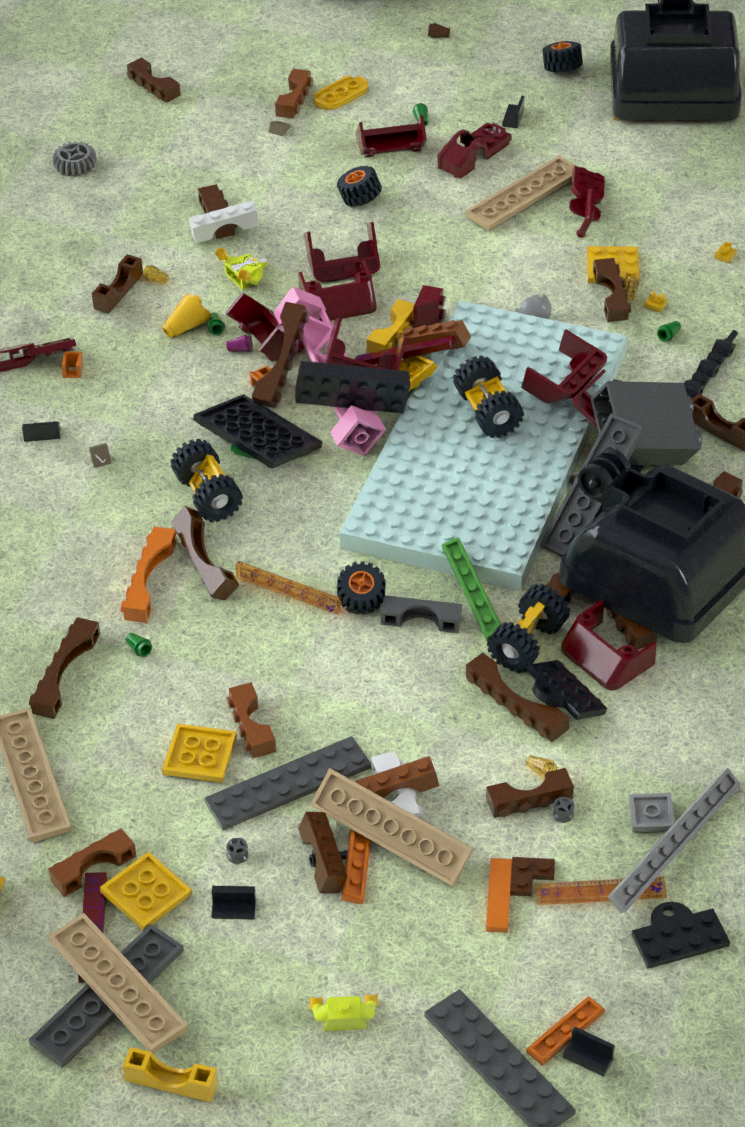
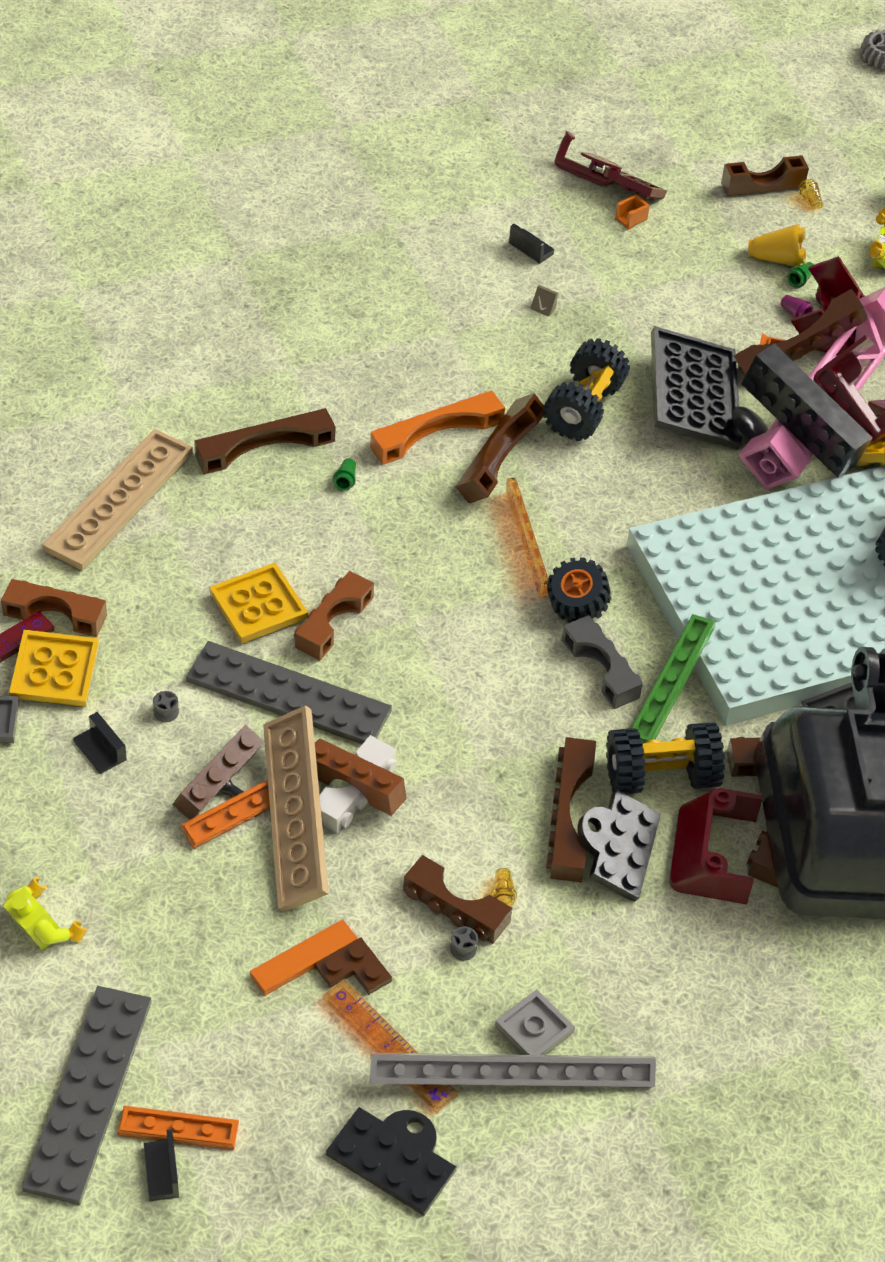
camera: 45 degrees right, 5 degrees up
(312, 427) = (747, 423): none -> black dish

